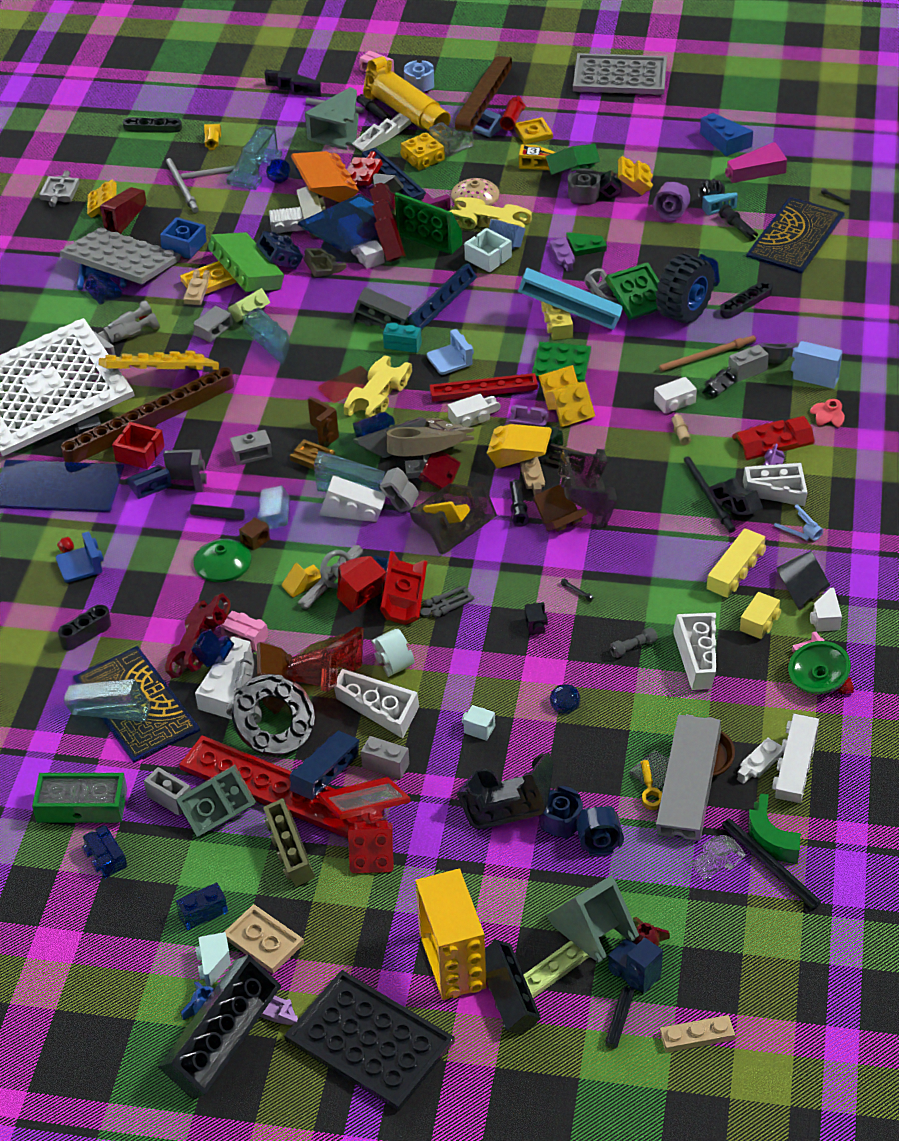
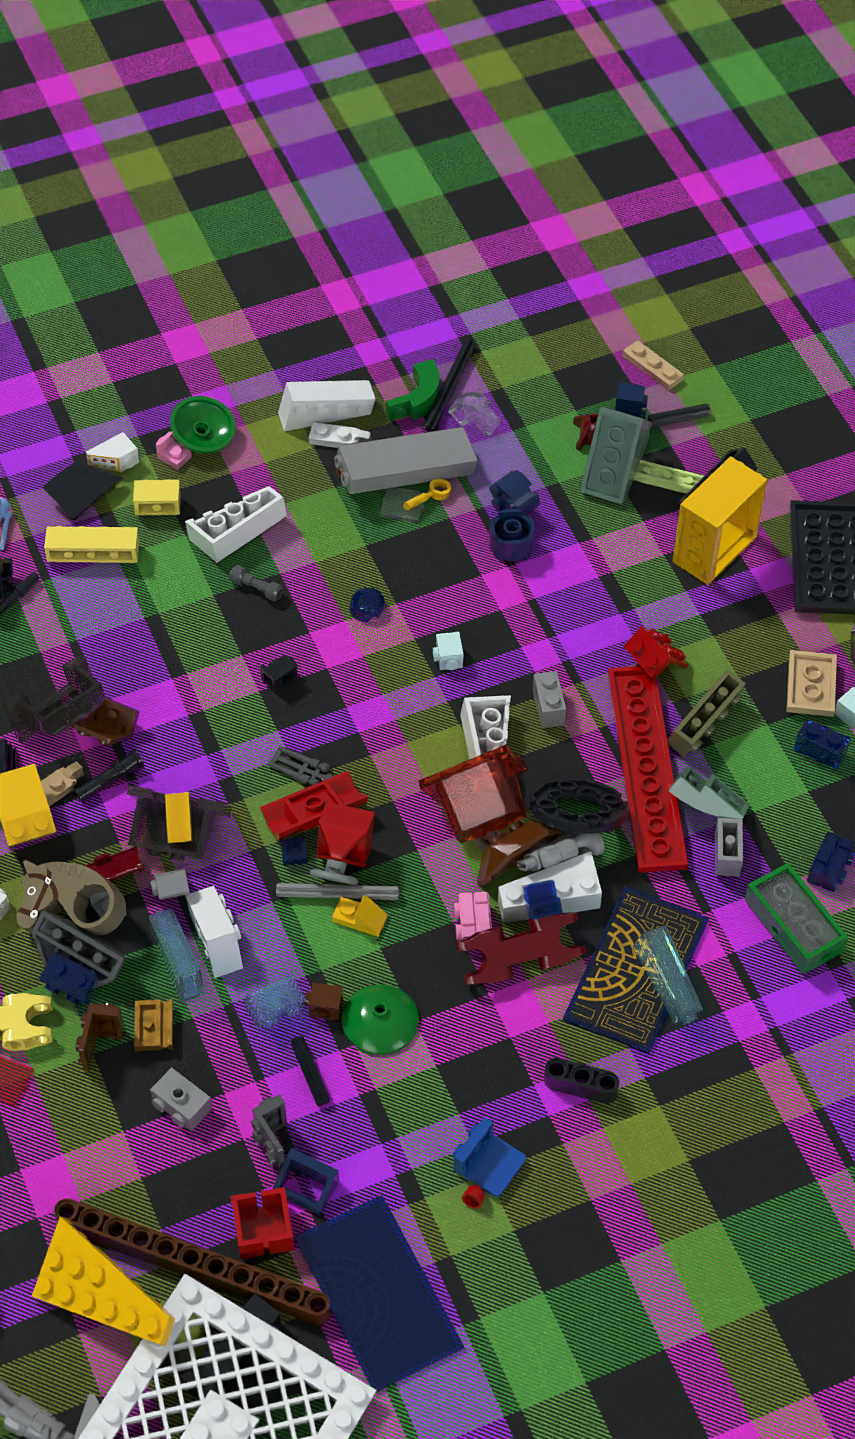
camera: 125 degrees left, 10 degrees up
(324, 765) = (600, 734): dark blue brick -> none
(363, 798) = (620, 674): piece -> none
(393, 652) = (416, 758): light aqua brick -> none
(497, 803) = (525, 569): black windscreen -> none
(564, 582) = (203, 681): black hinge -> none

